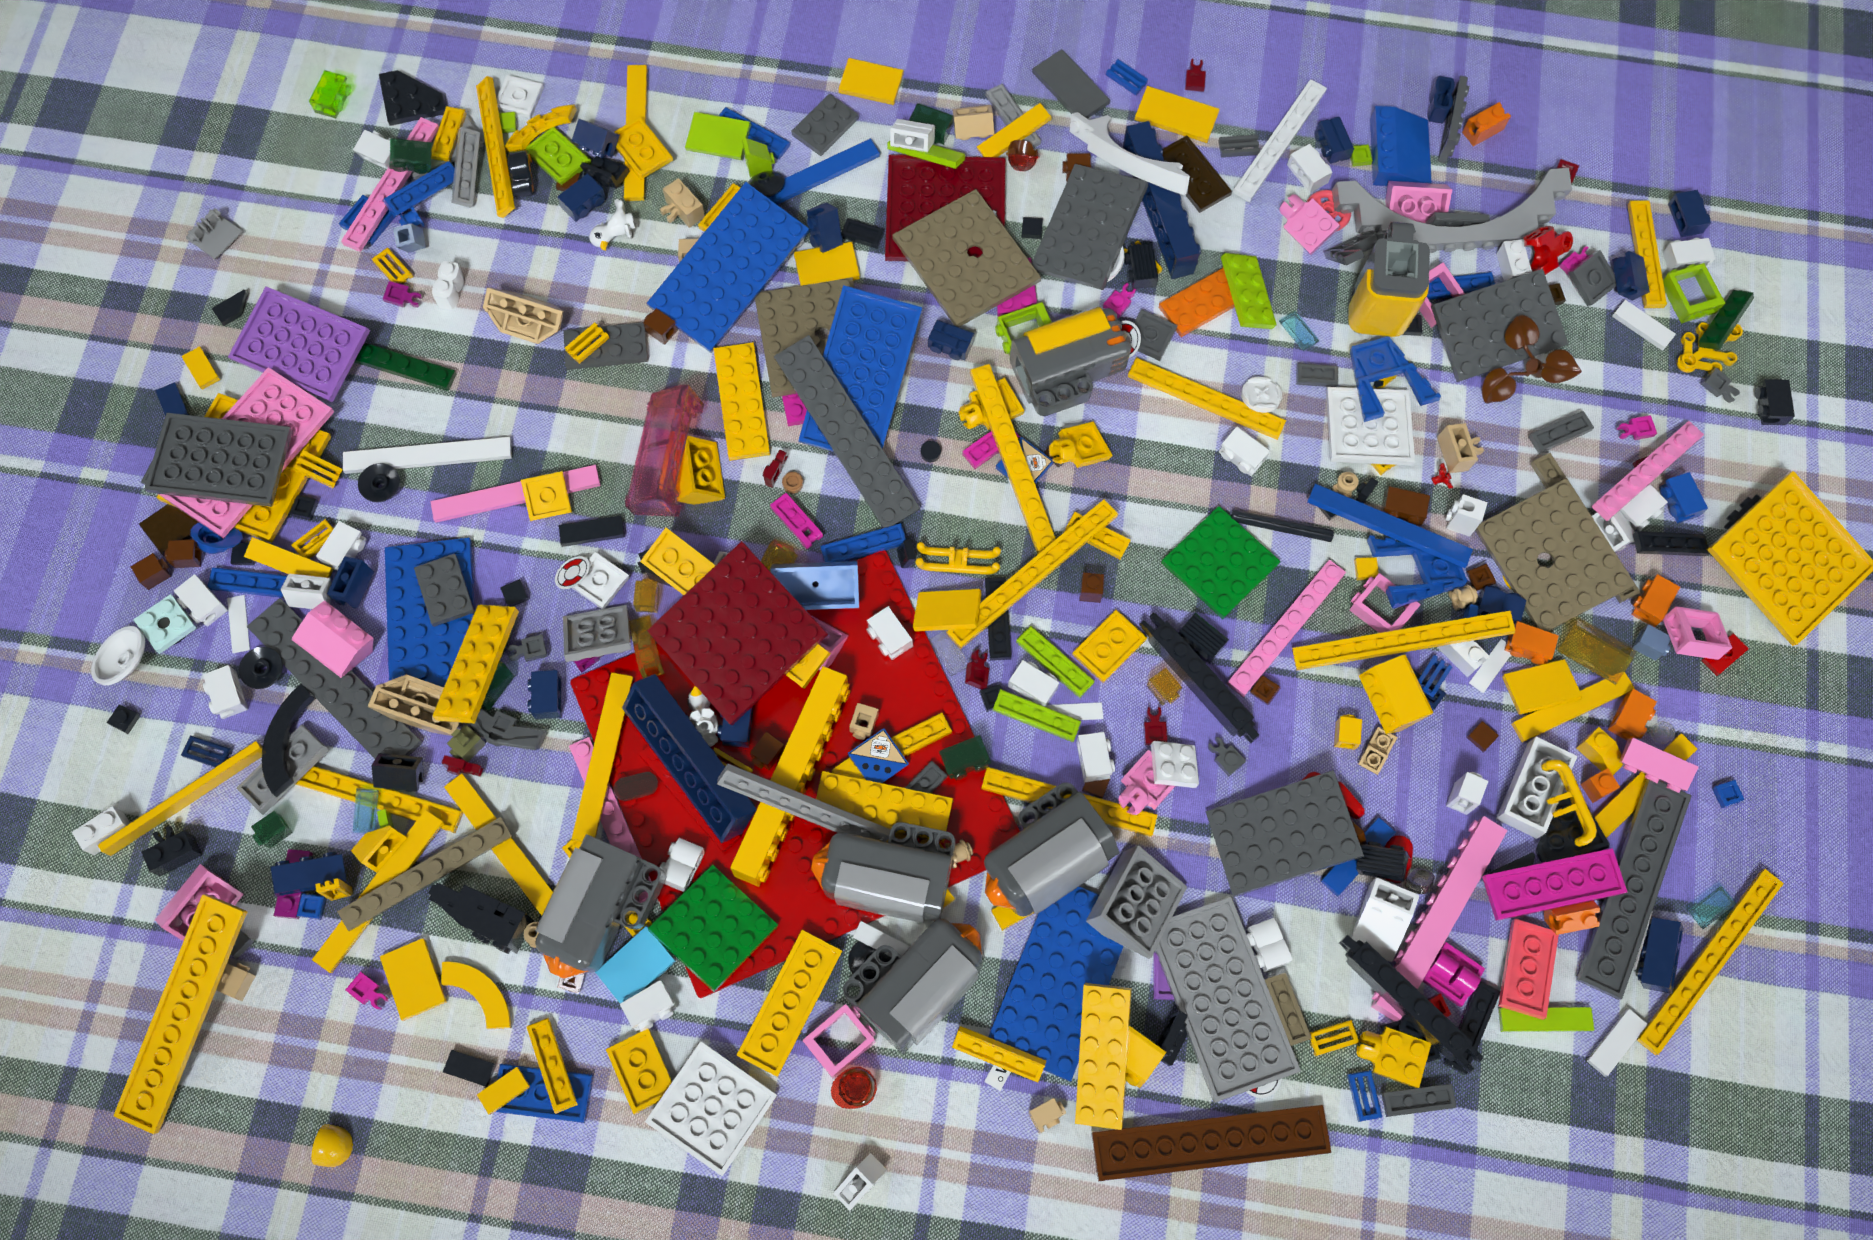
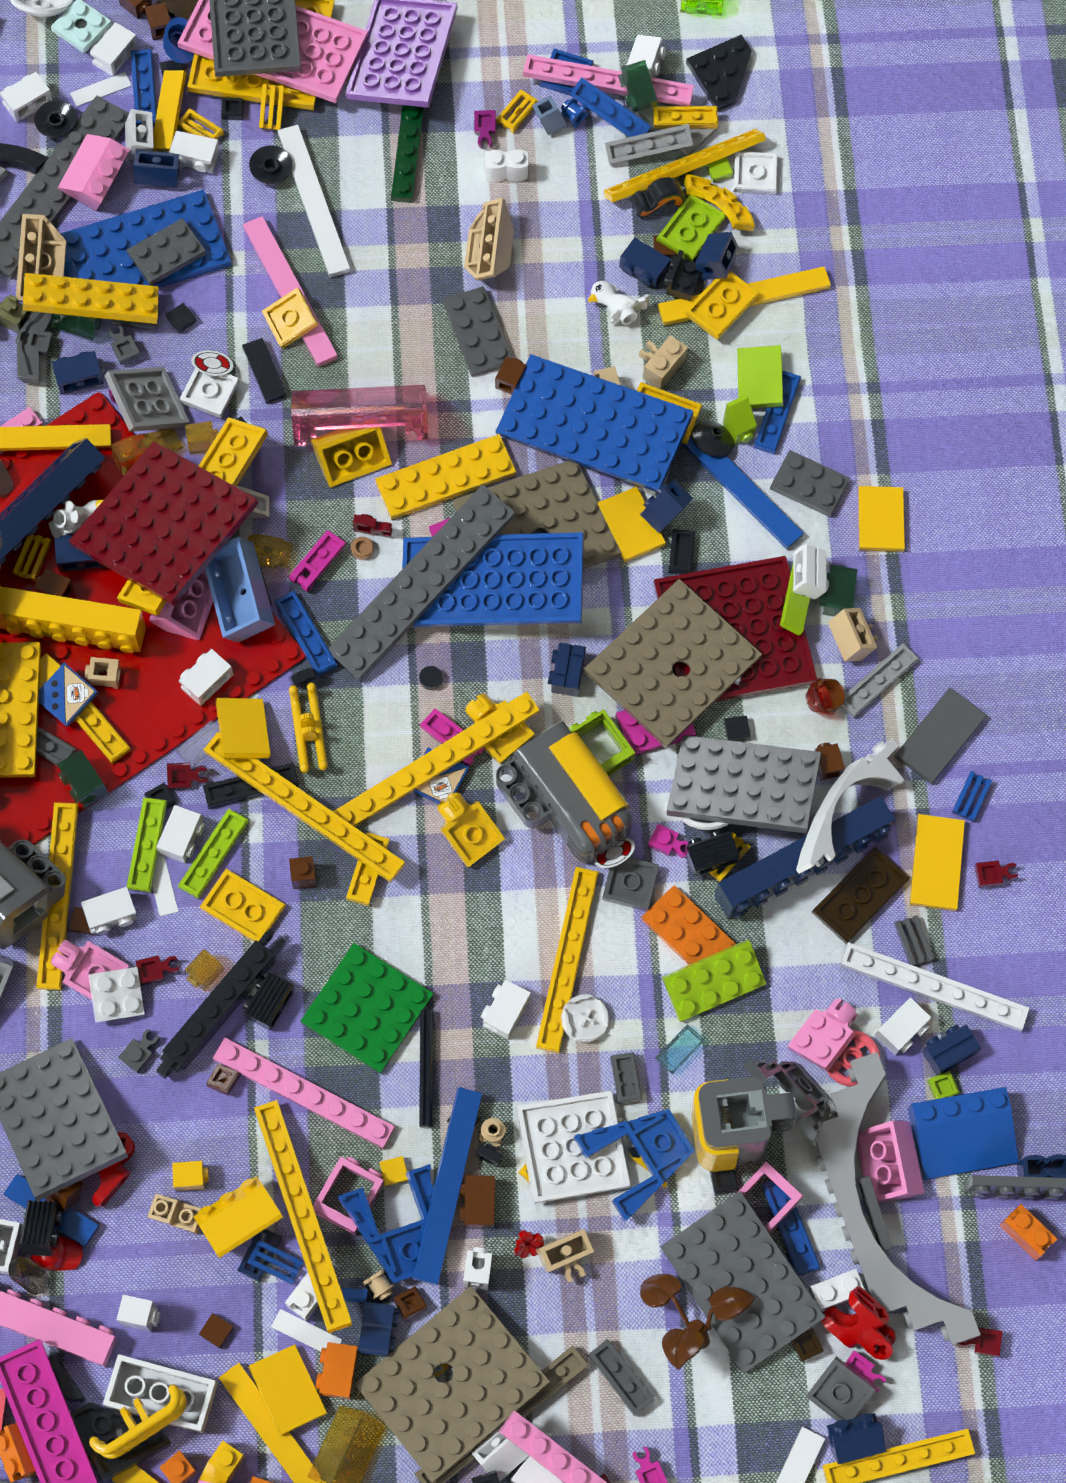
camera: 75 degrees right, 0 degrees up
(584, 341) = (472, 310): yellow tile -> none
(1016, 130) = (854, 683): yellow tile -> none

